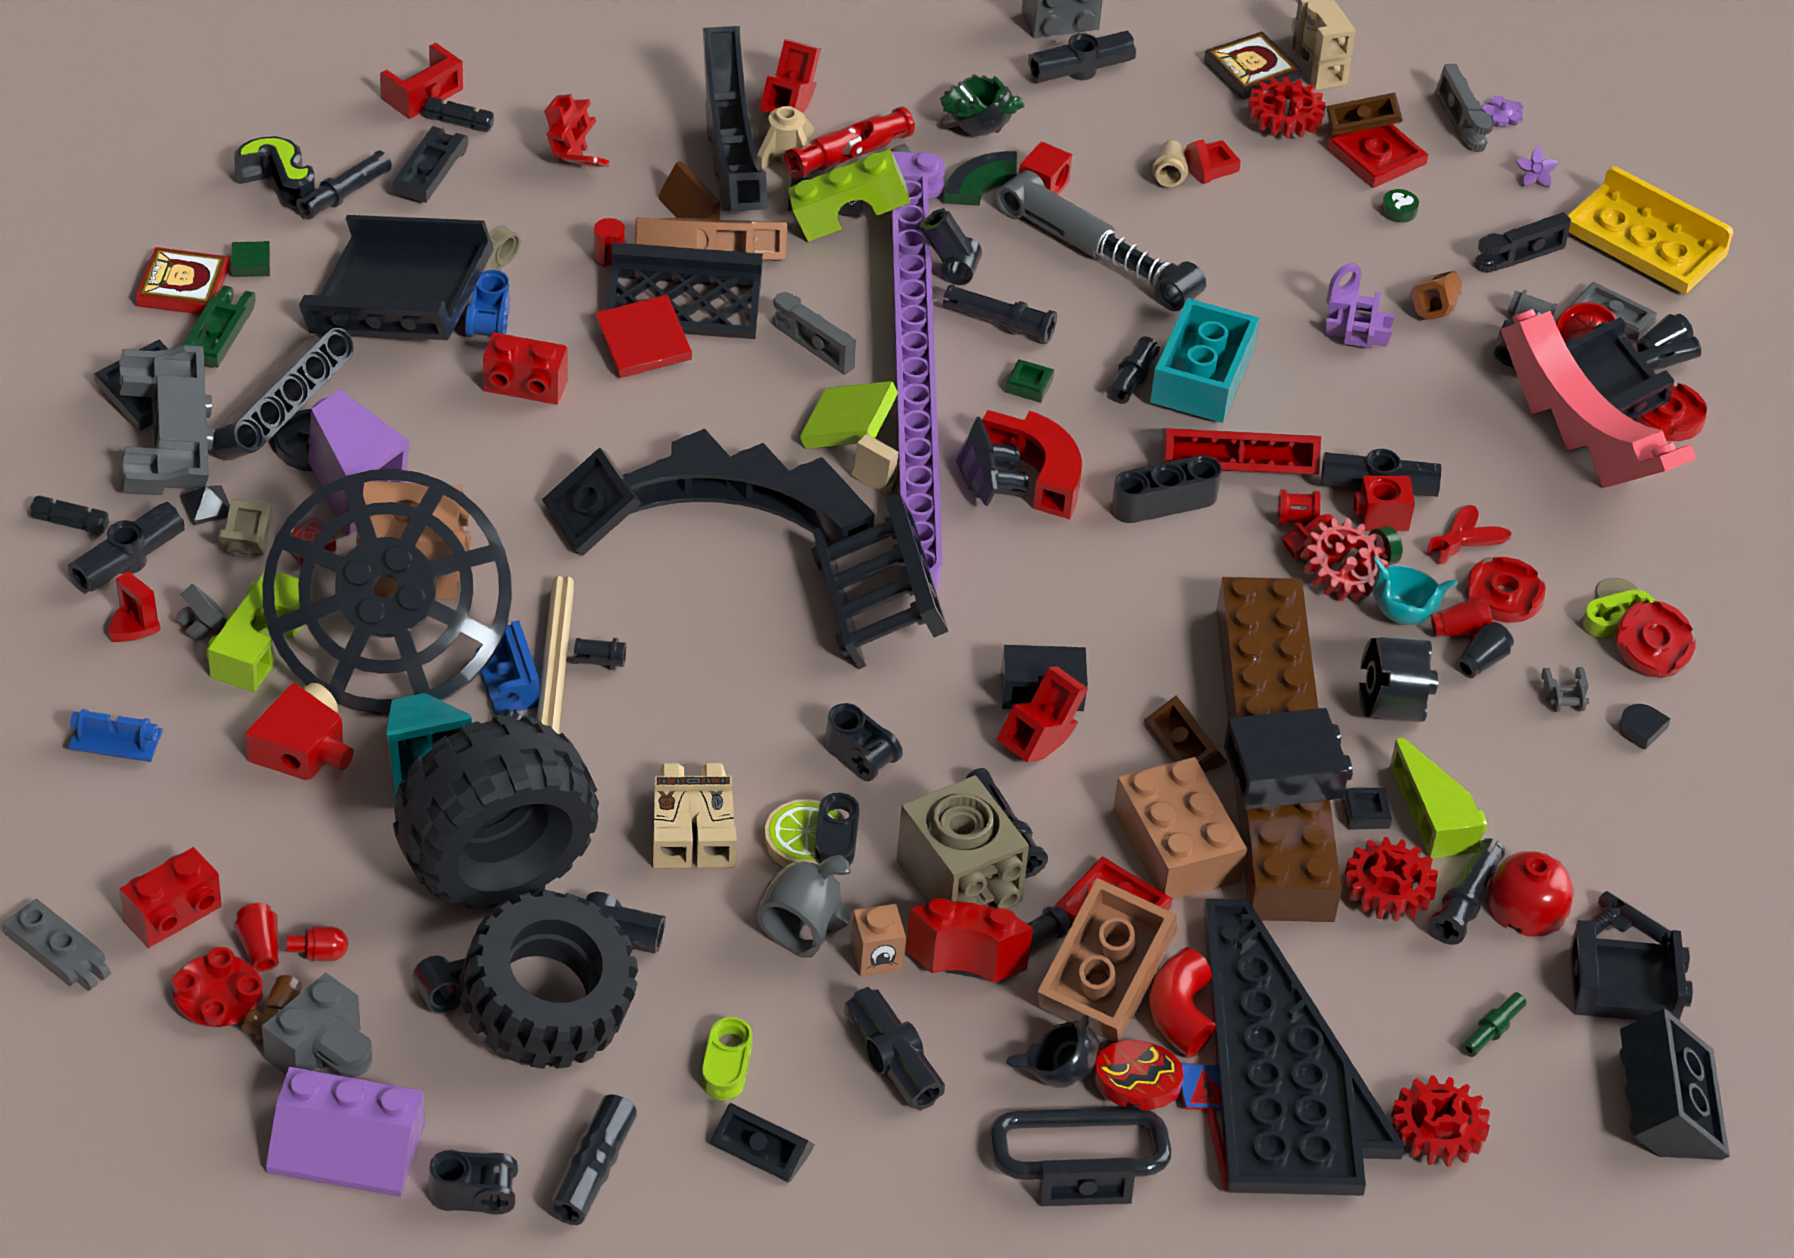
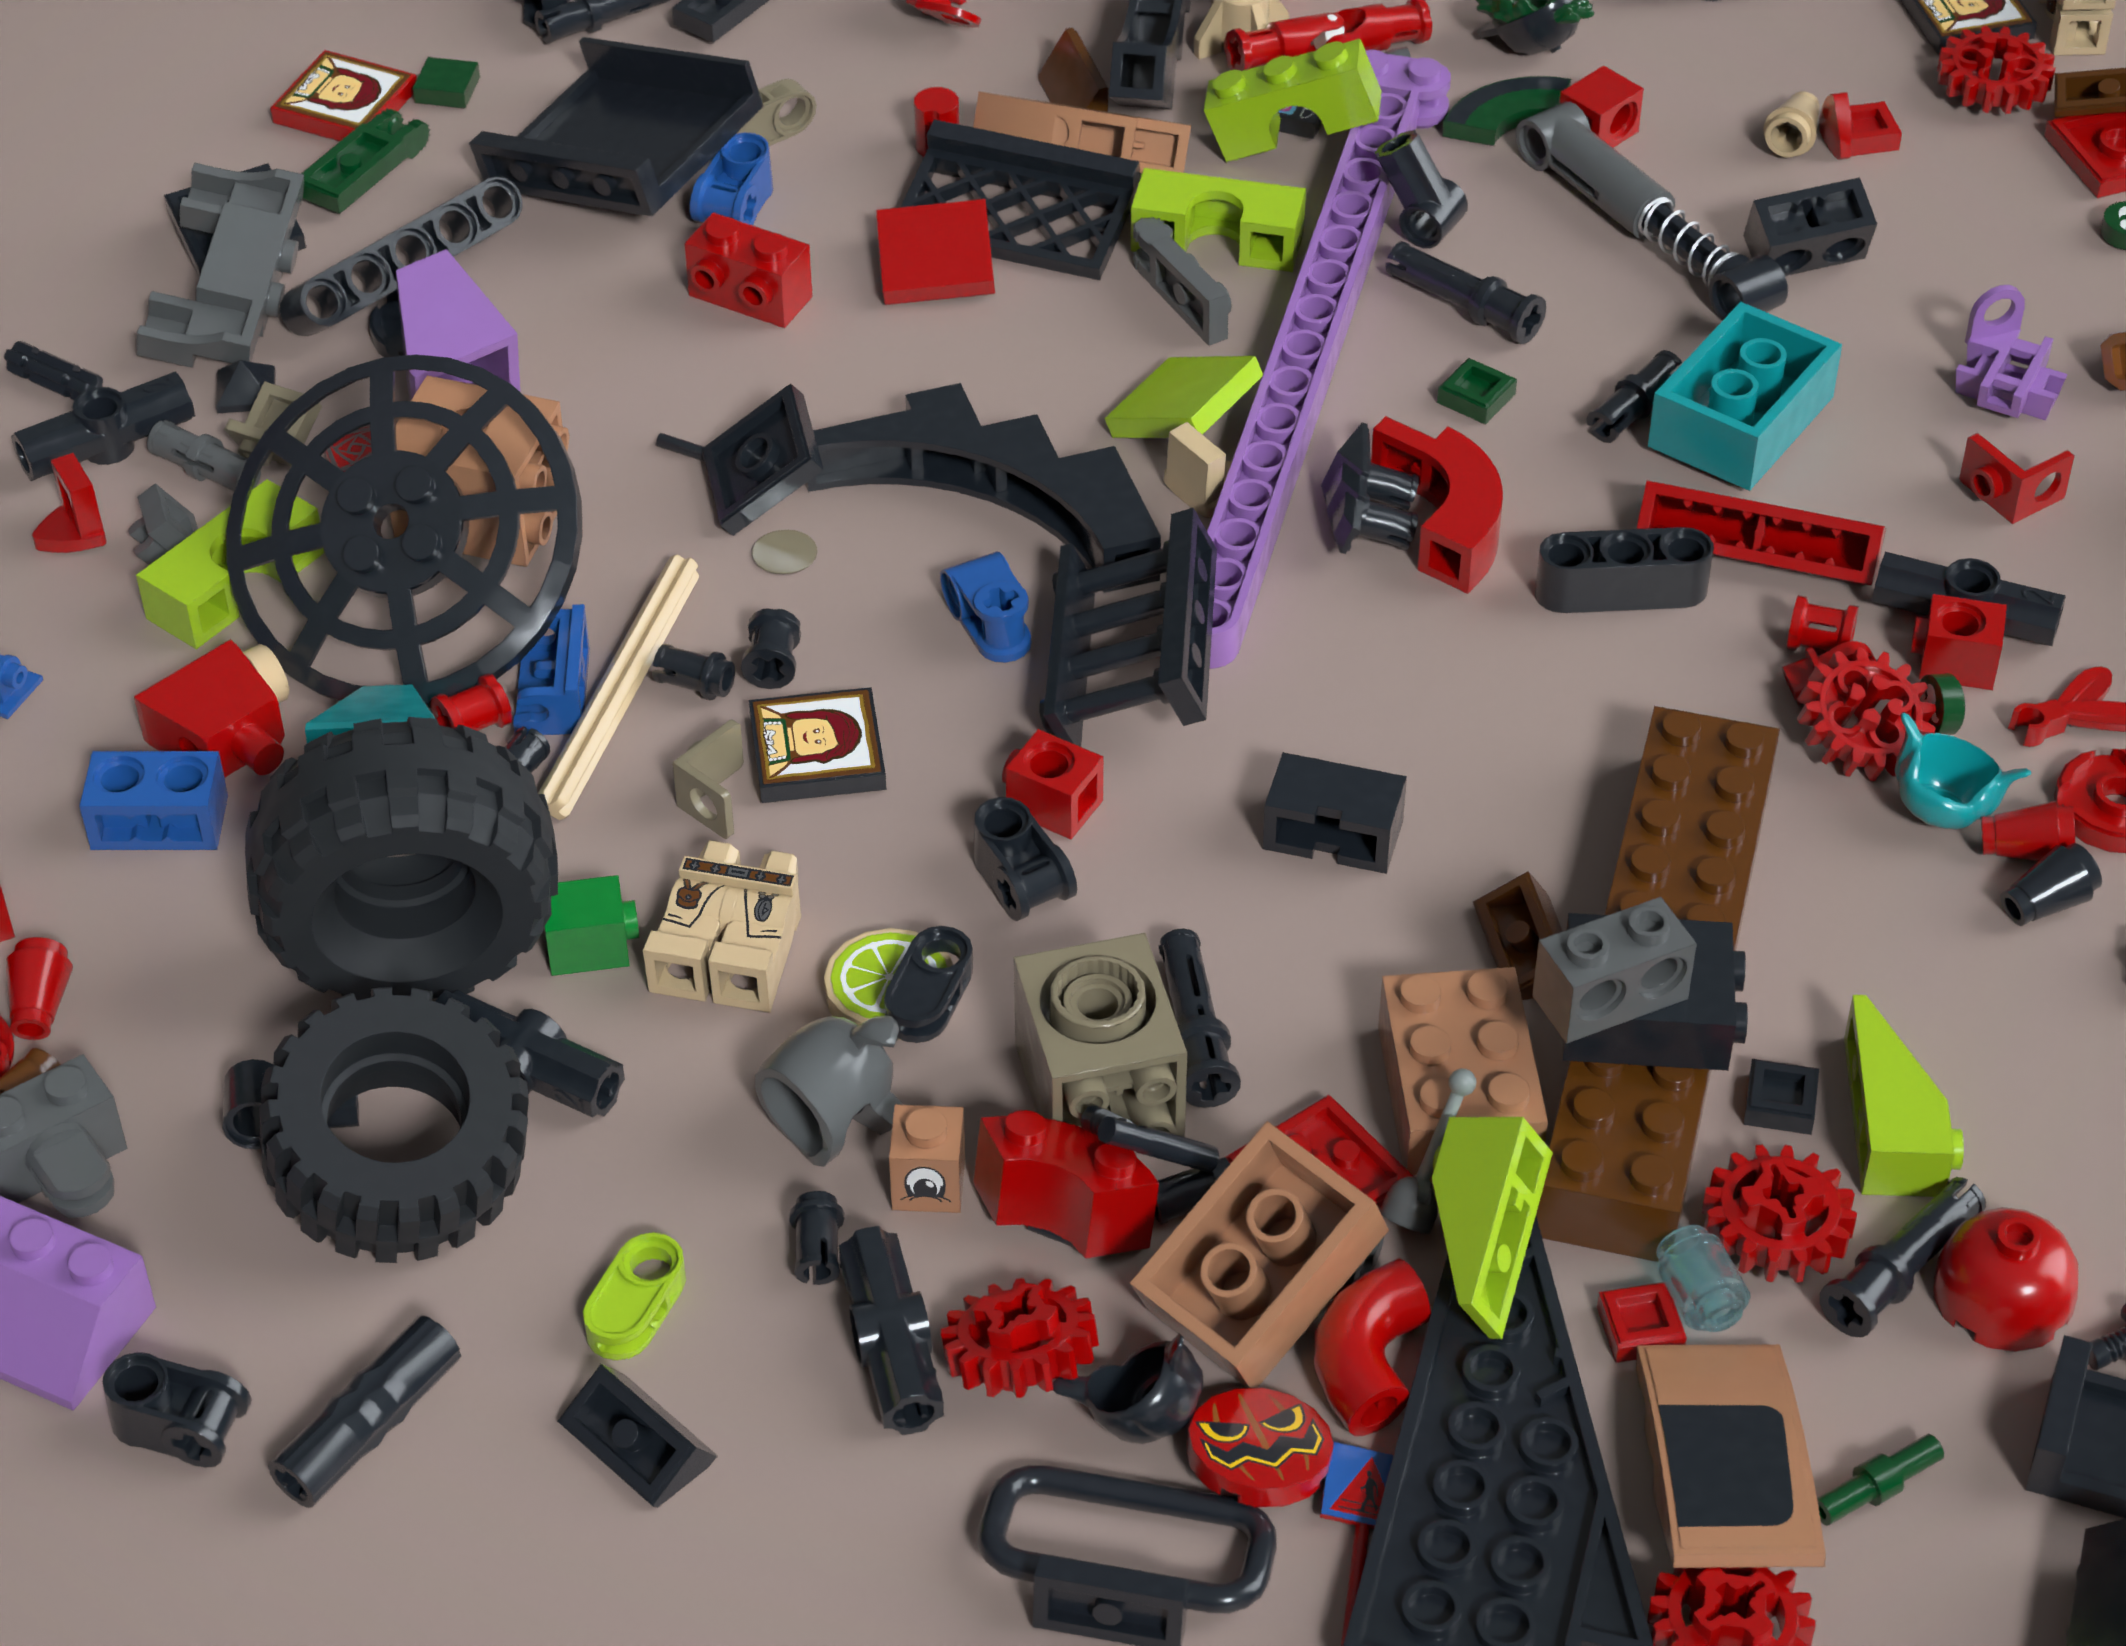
camera: 20 degrees right, 0 degrees up
(204, 558) = (199, 455): none -> dark grey pin
(282, 799) = (154, 800): none -> blue brick
(319, 943) = (116, 1013): red cylinder -> none
(472, 698) = (474, 707): none -> red bush
(524, 499) = (680, 446): none -> black piece
(613, 834) = (590, 926): none -> green brick
(622, 561) = (784, 552): none -> dark tan sticker
(634, 720) = (701, 772): none -> dark tan bracket
(648, 626) = (770, 657): none -> black bush
(698, 688) = (817, 745): none -> tile
(775, 577) = (989, 606): none -> blue piece
(823, 993) = (817, 1223): none -> black pin
(850, 280) = (1257, 215): none -> lime arch
(864, 685) = (1055, 782): none -> red brick
(976, 1037) = (1019, 1337): none -> red gear
(1015, 903) = (1149, 1141): none -> black hose
(1047, 721) = (1306, 882): red brick -> none
(1179, 904) = (1412, 1198): none -> hinge
(1210, 237) = (1812, 226): none -> black brick
(1228, 894) = (1487, 1201): none -> lime slope
(1274, 749) = (1614, 969): none -> dark grey brick
(1330, 959) = (1639, 1318): none -> red tile
(1359, 926) = (1702, 1279): none -> clear light blue brick
(1378, 394) = (2007, 485): none -> red bracket
(1397, 679) = (1888, 904): black brick -> none
(1410, 1026) = (1729, 1457): none -> slope

